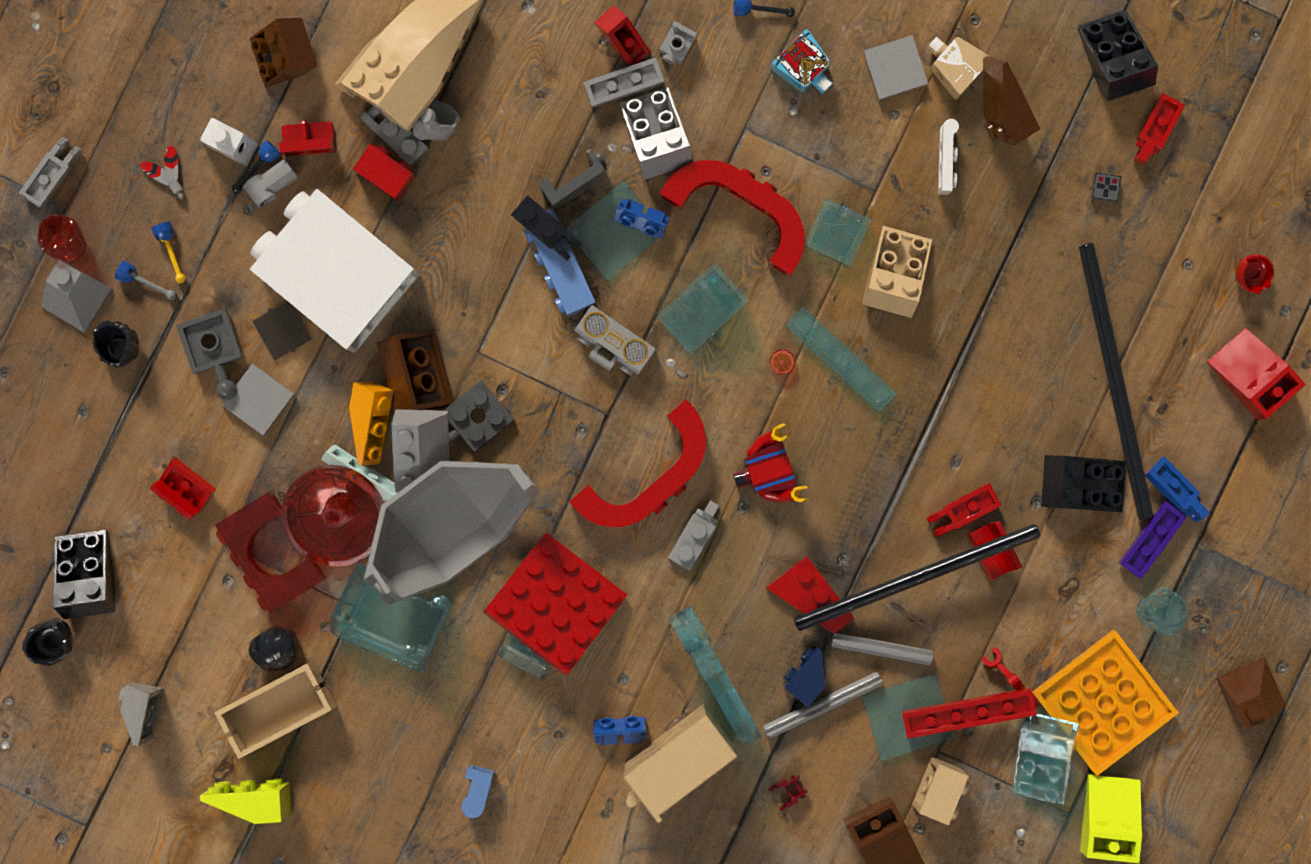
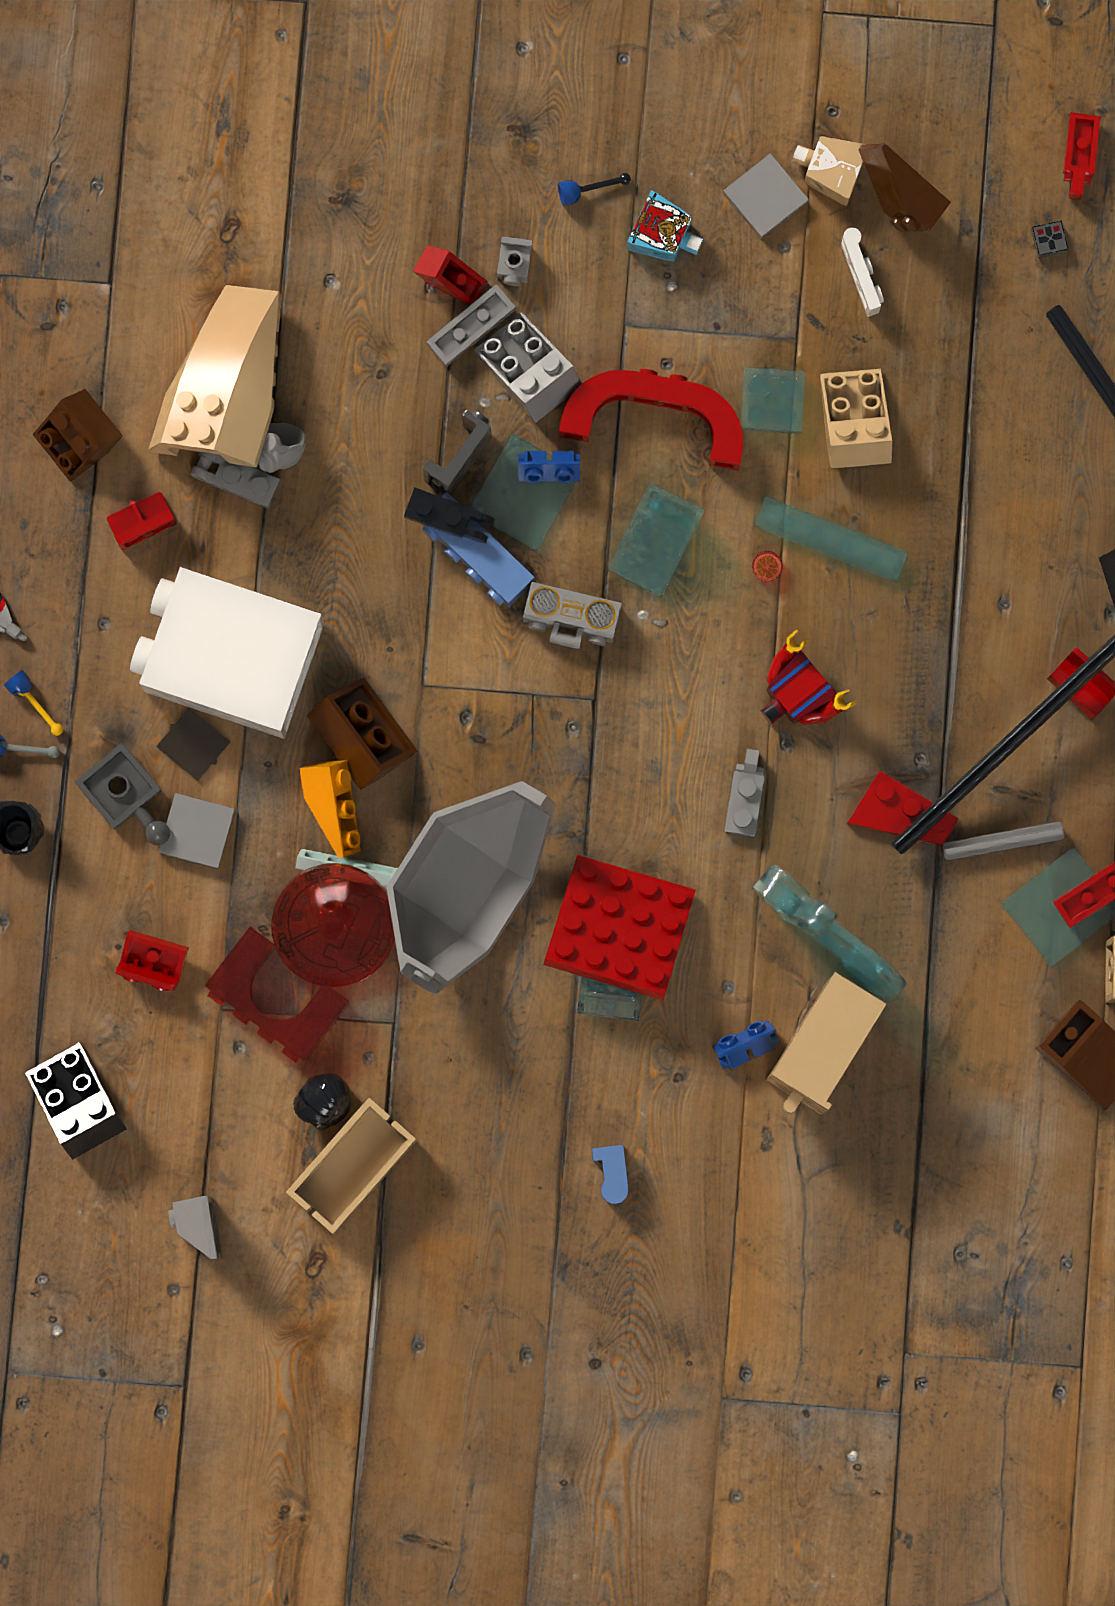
camera: 20 degrees left, 5 degrees down
(48, 642) = (66, 1190): black hair -> none
(228, 141) = (56, 556): white torso -> none
(252, 801) = (373, 1276): neon yellow slope -> none
(264, 187) = (114, 592): light grey piece -> none
(267, 153) = (102, 553): hinge -> none
(384, 172) = (242, 523): red piece -> none
(399, 632) = (445, 1029): clear light blue windscreen -> none
(418, 443) = (400, 806): light grey slope -> none
(477, 433) = (452, 776): dark grey plate -> none
(673, 482) = (632, 808): red arch -> none
(793, 799) = (970, 1047): dark red piece -> none
(808, 678) = (933, 905): dark blue slope -> none
(823, 705) = (962, 929): light grey axle -> none
(966, 509) = (1036, 649): red hinge -> none
(1118, 55) = (1005, 90): black slope -> none

